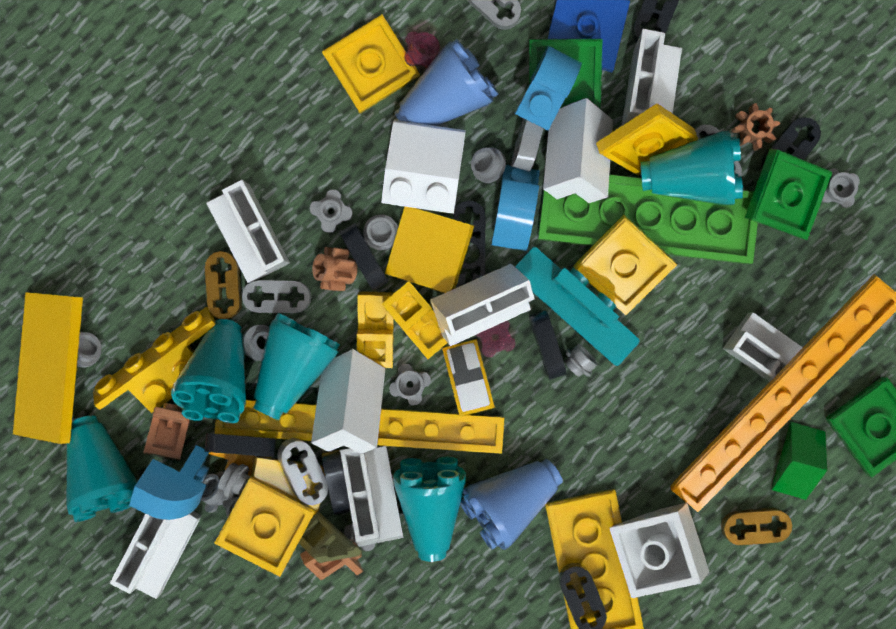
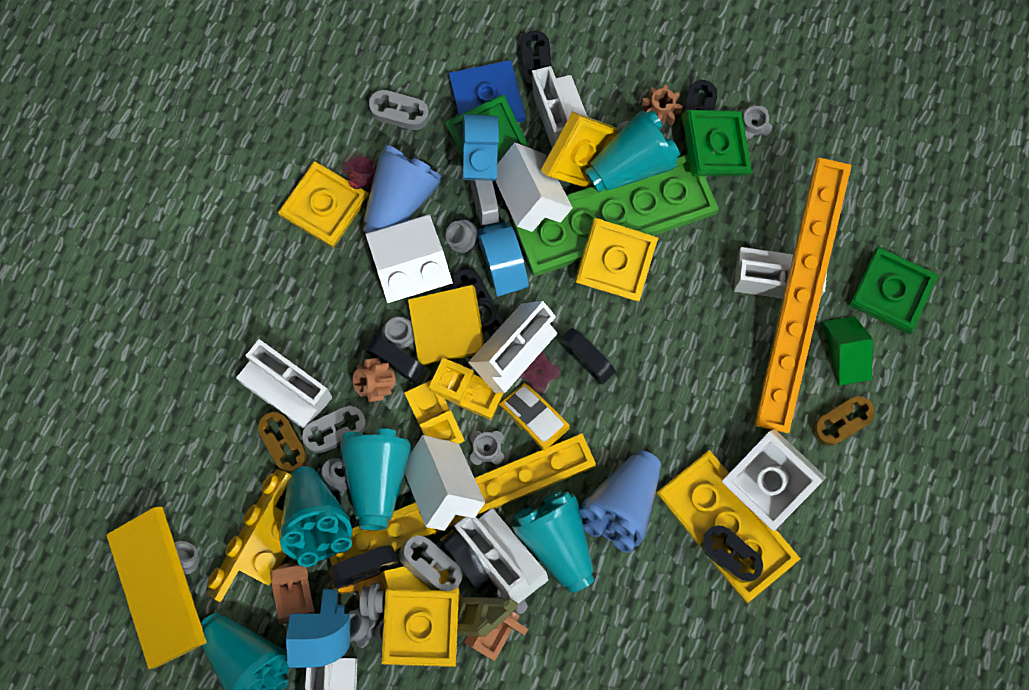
camera: 30 degrees left, 15 degrees down
(340, 214) = (356, 333): light grey plate -> none
(578, 306) = (598, 311): teal bracket -> none
(580, 361) = (621, 356): light grey plate -> none

